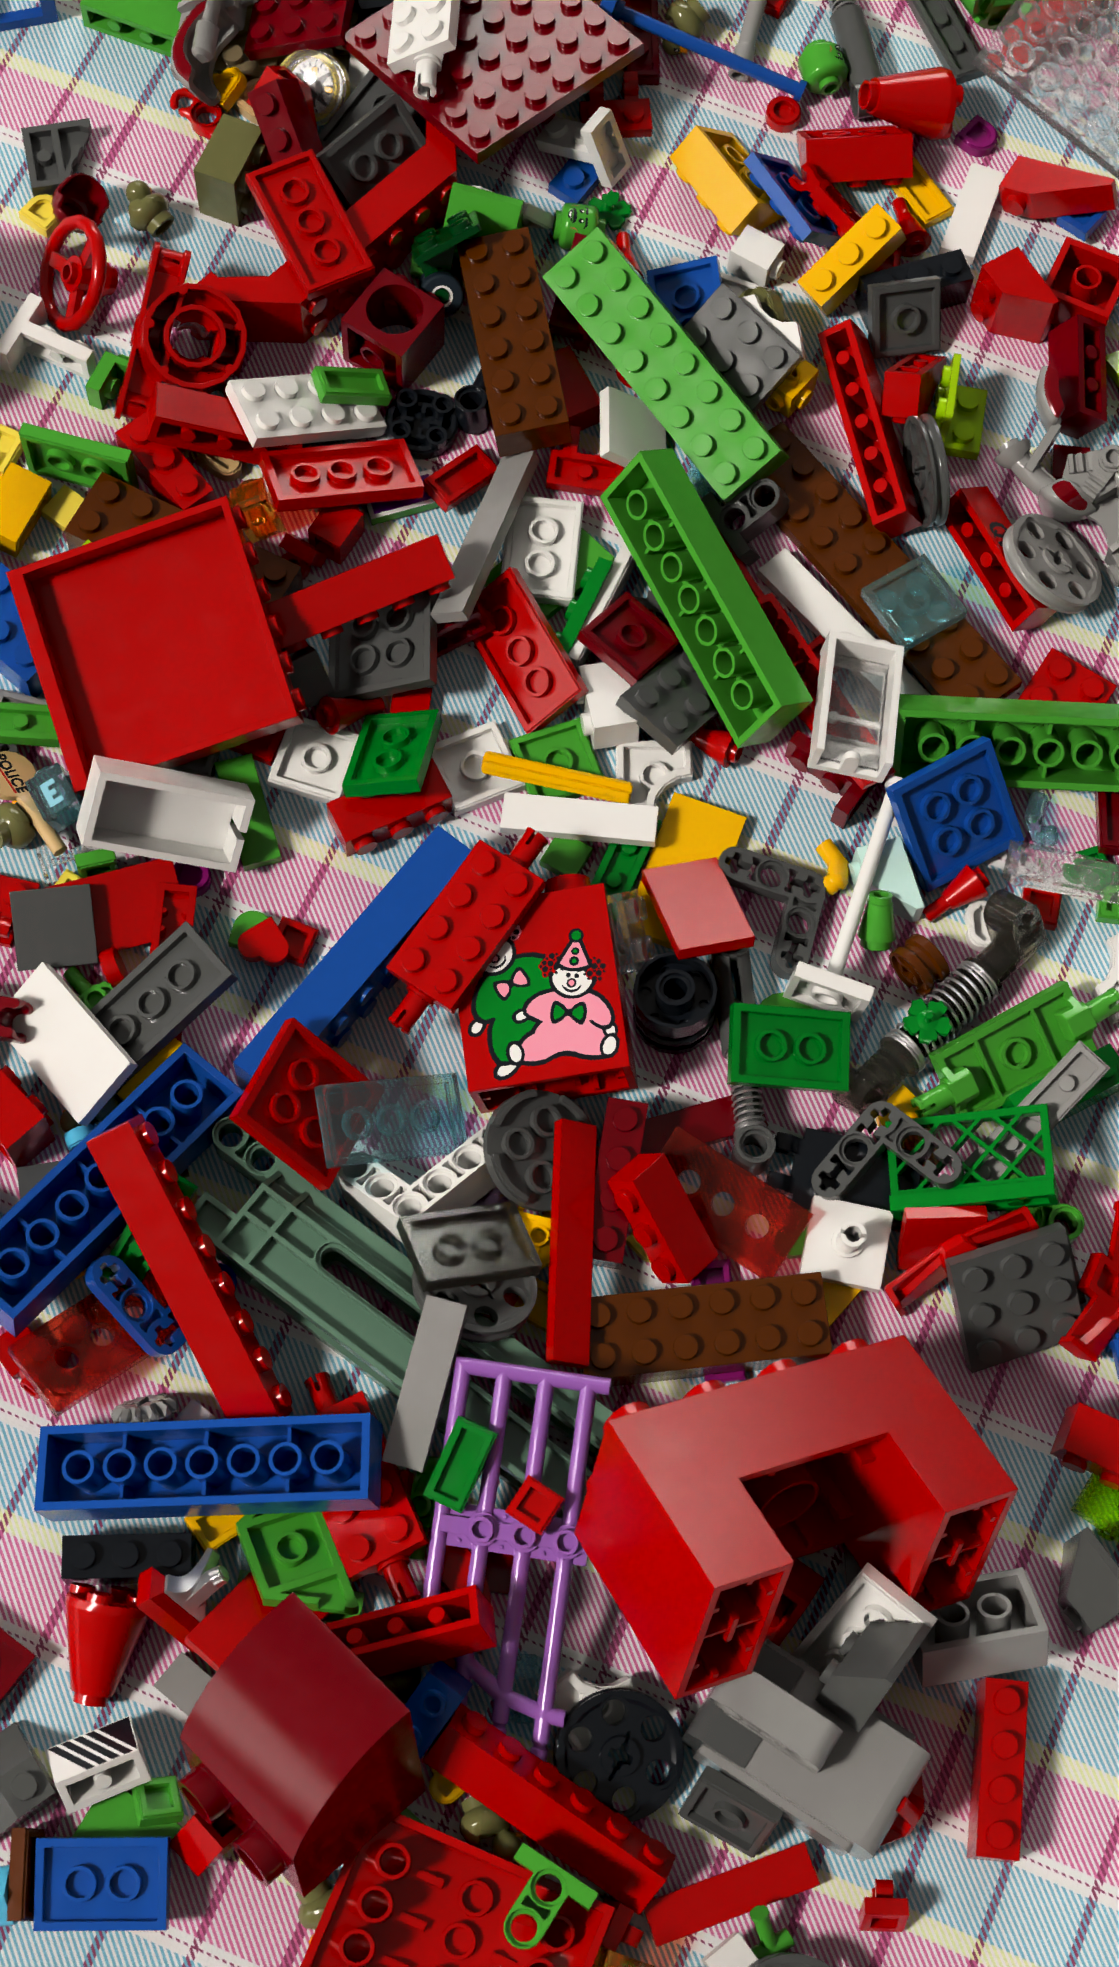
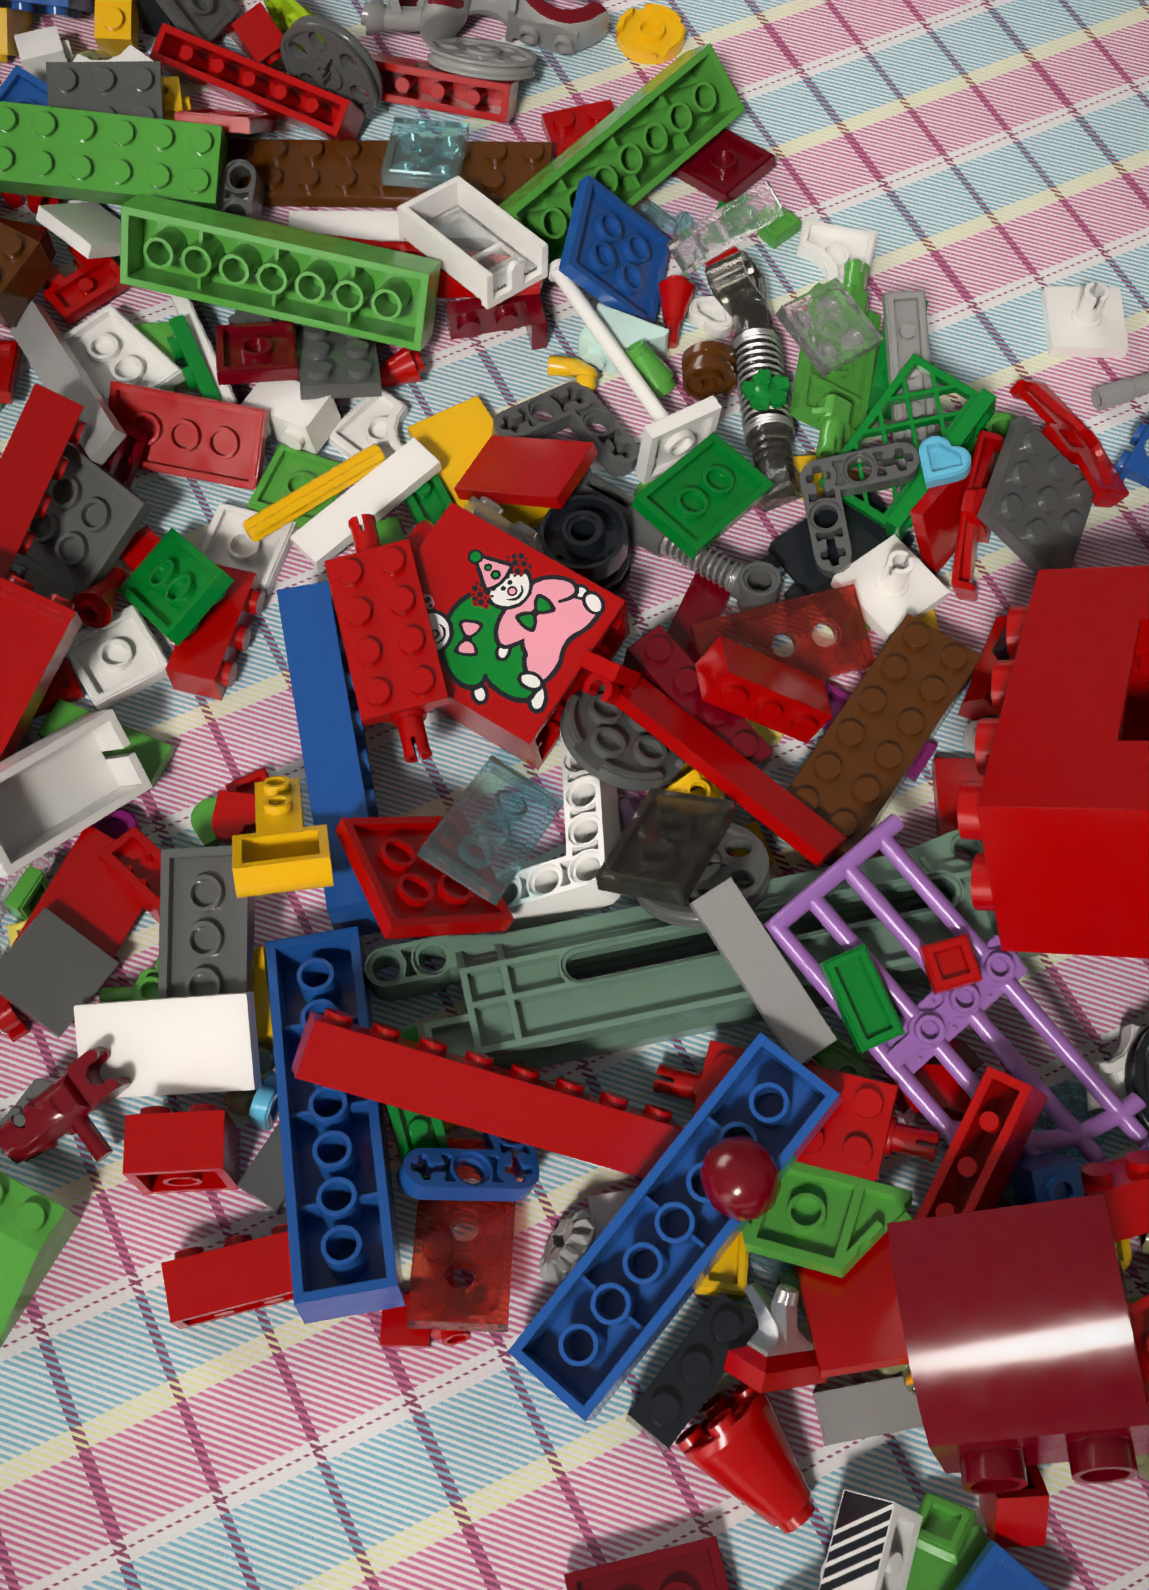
camera: 45 degrees left, 5 degrees down
(112, 966) = (134, 954): red tile -> none
(247, 1002) = (282, 851): none -> yellow plate
(258, 1478) = (740, 1178): none -> dark red hair
(569, 1101) = (607, 673): none -> red tile
(809, 438) = (230, 120): none -> red tile
(964, 1198) = (943, 462): none -> medium azure tile
(1025, 1022) = (829, 327): none -> clear plate

